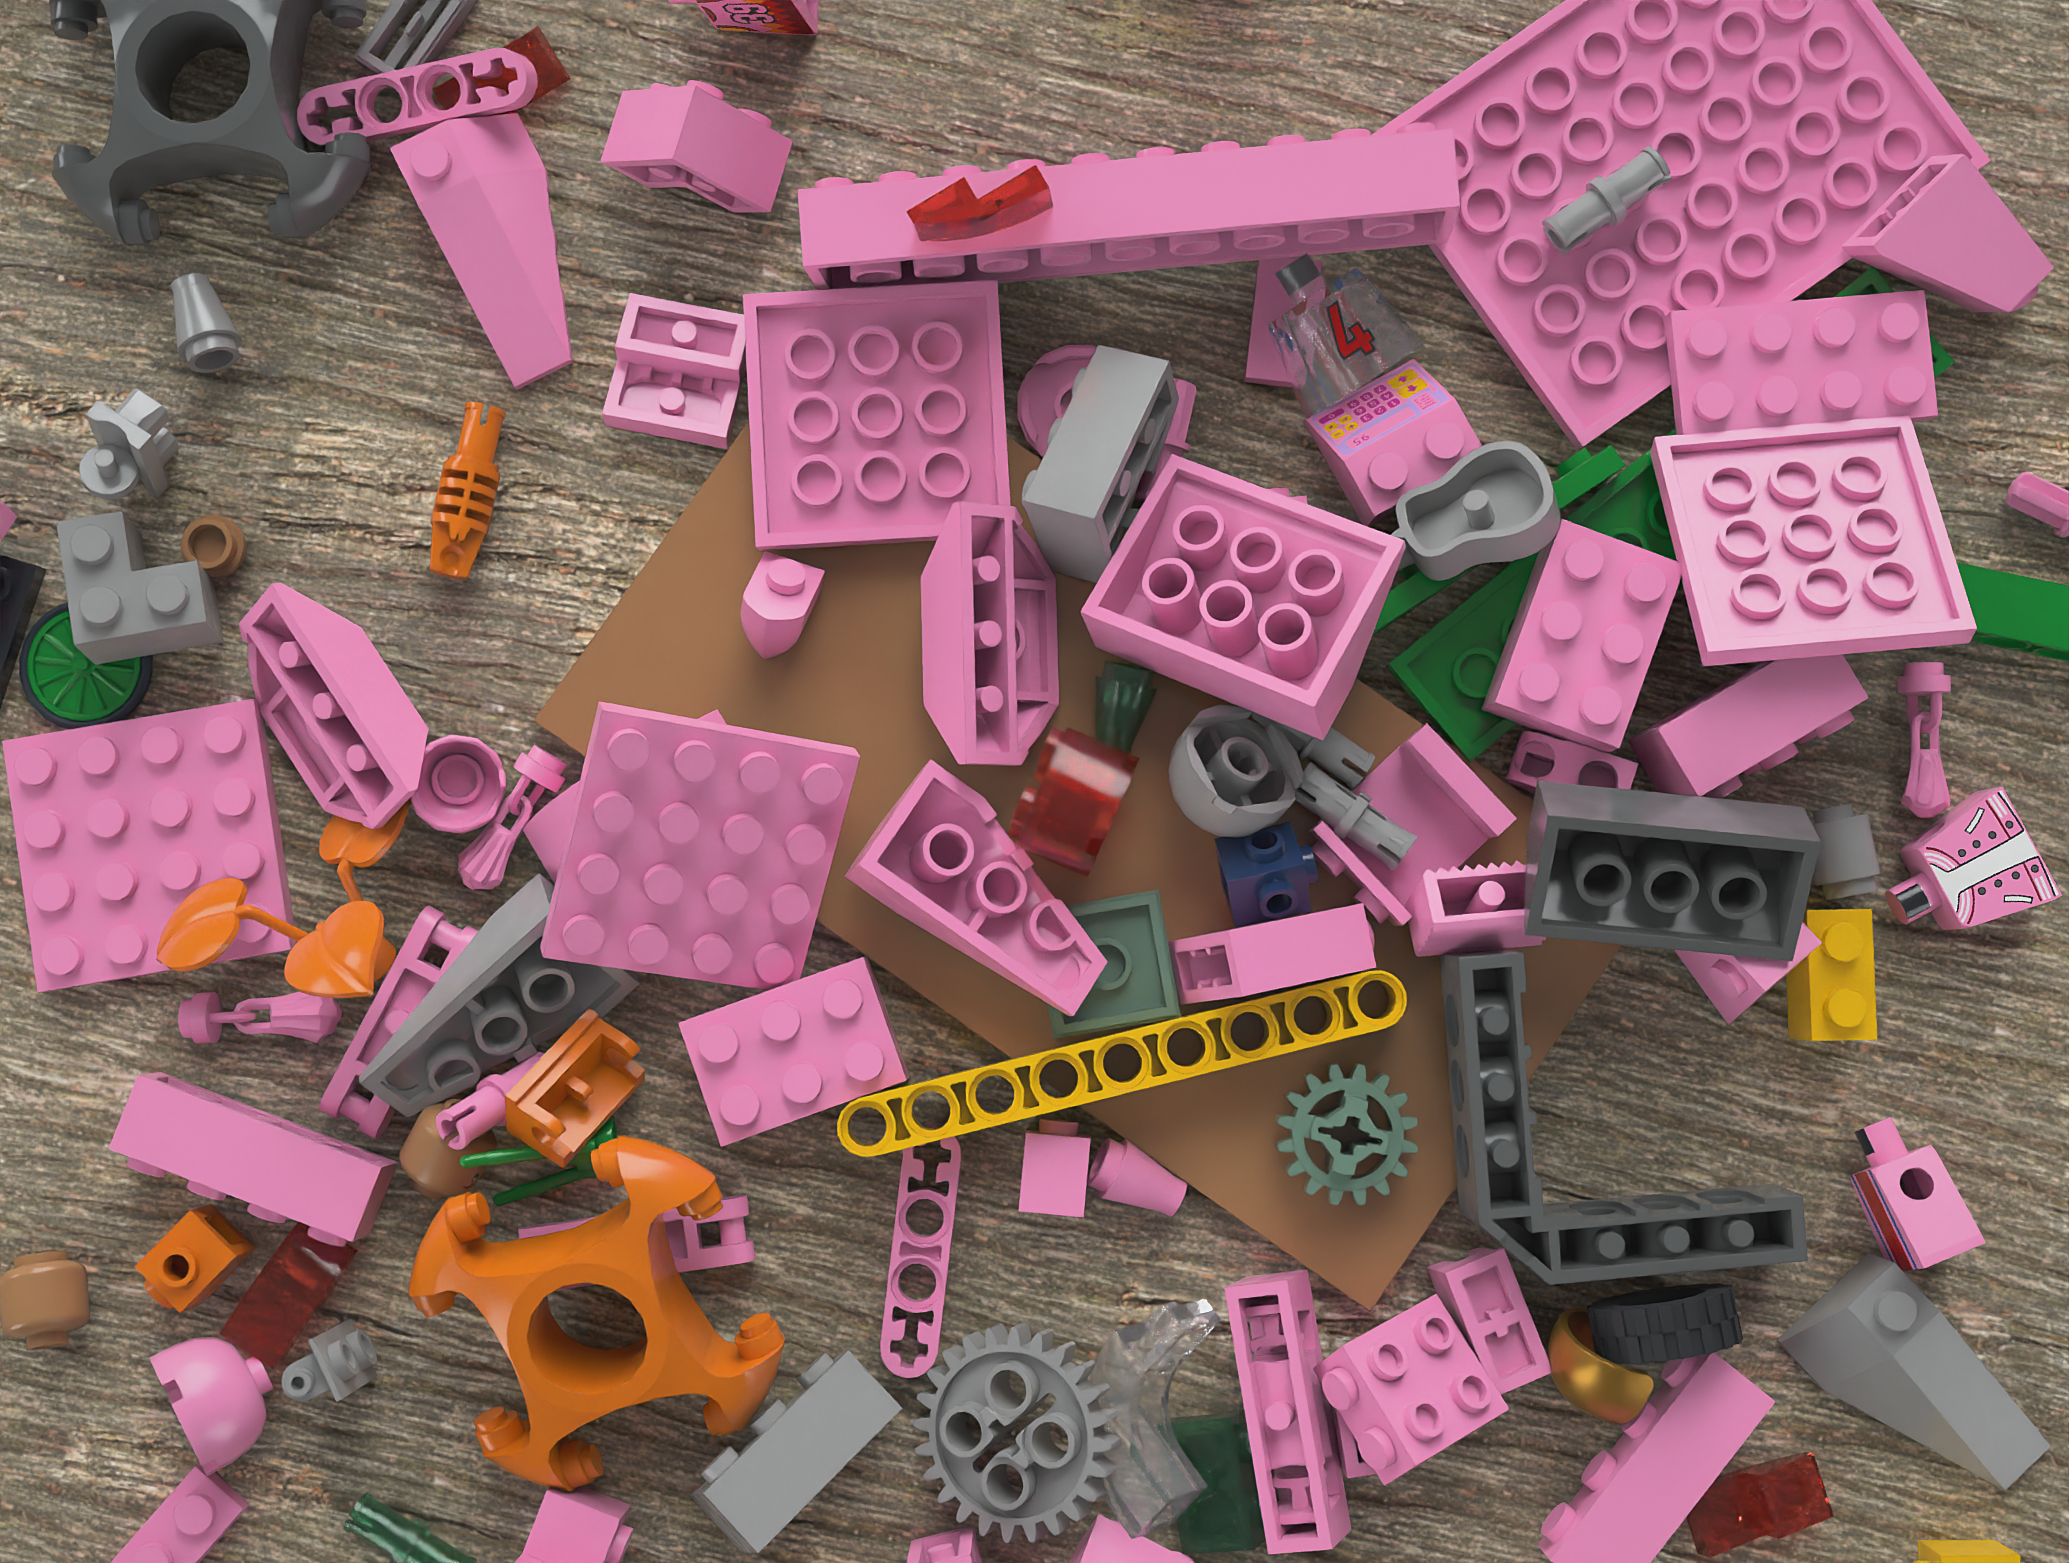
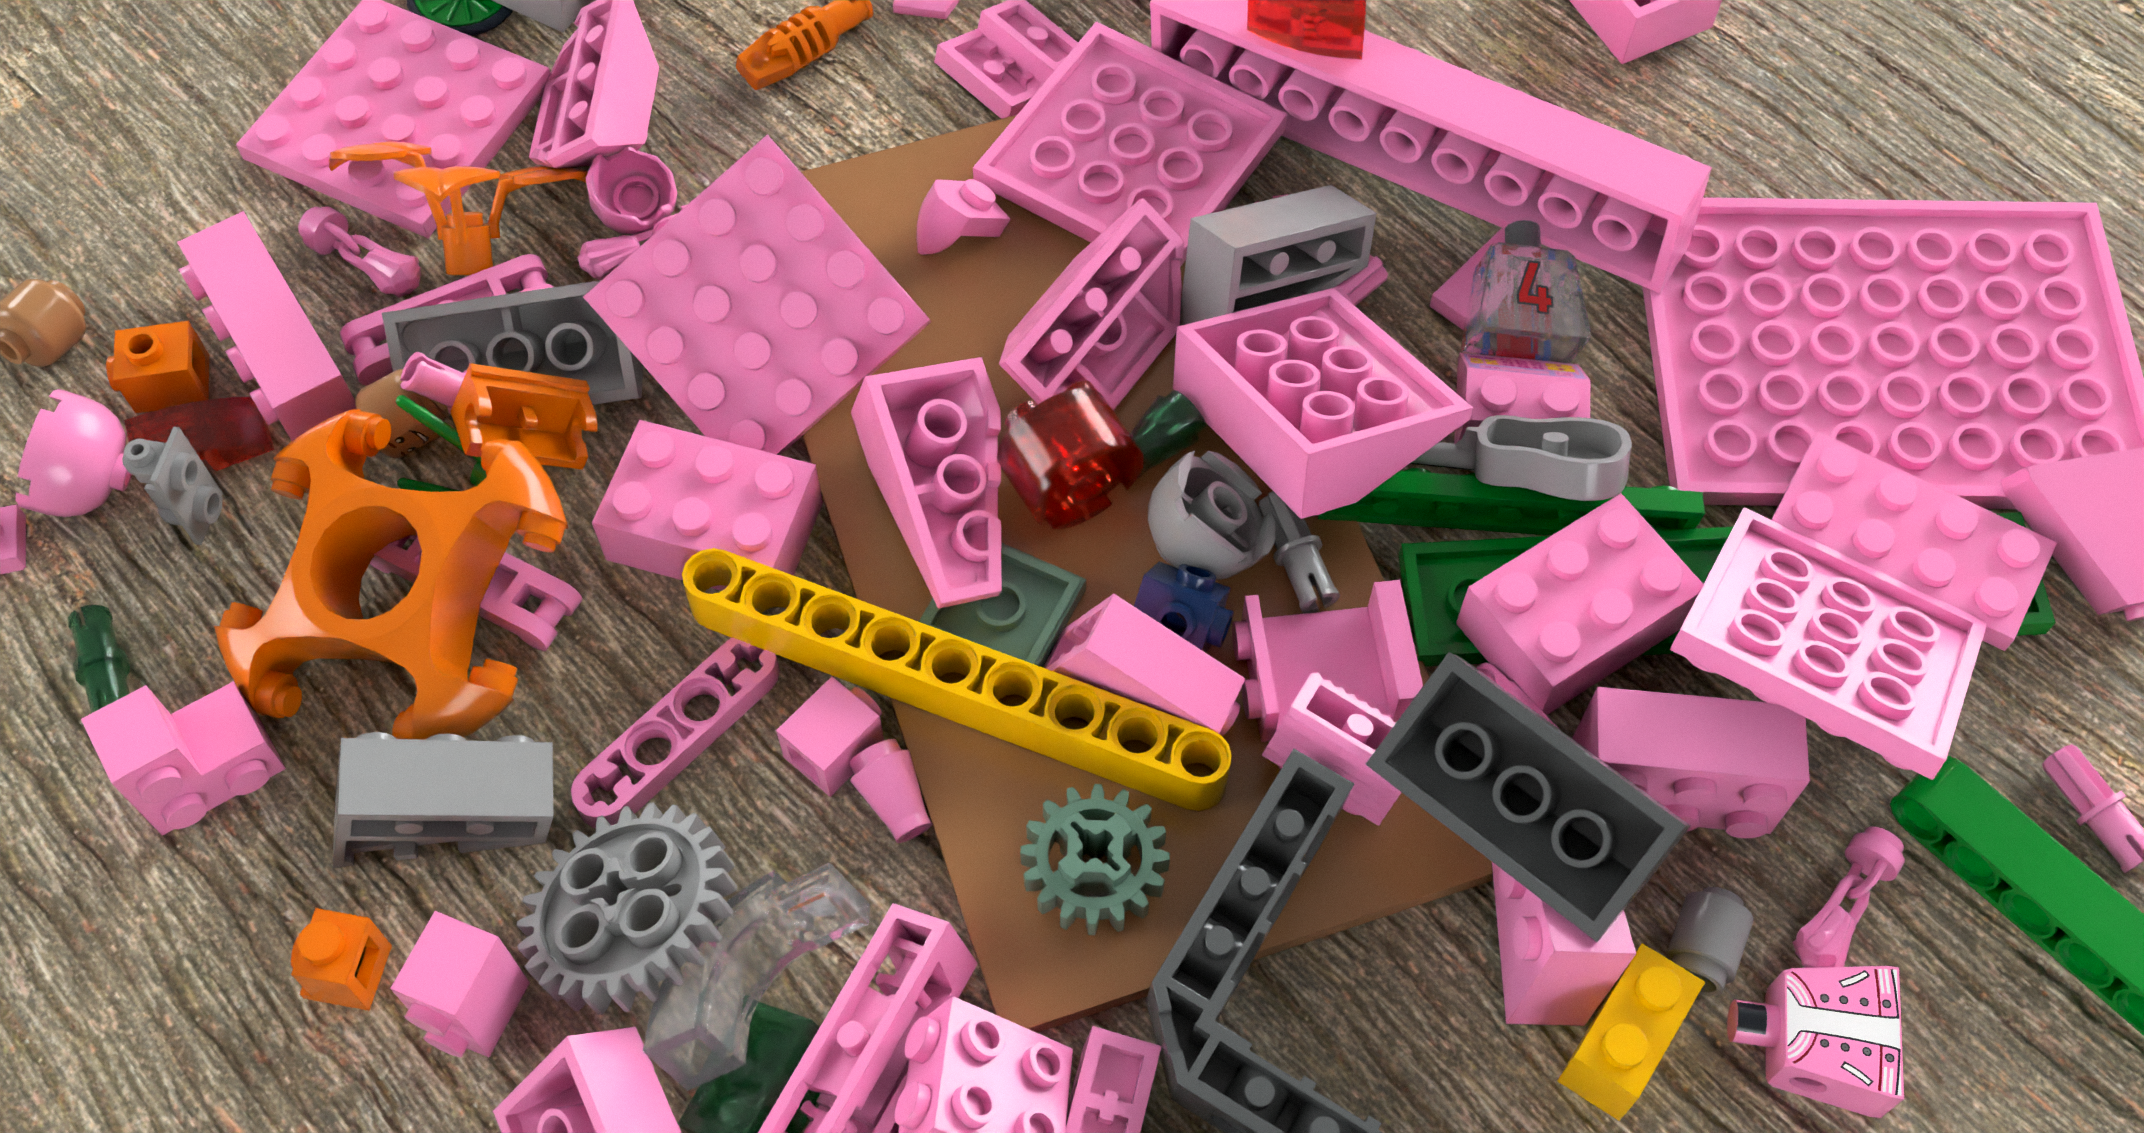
camera: 35 degrees right, 25 degrees down
(1353, 817) = (1286, 620): light grey pin -> none
(1606, 200) = (1812, 329): light grey pin -> none

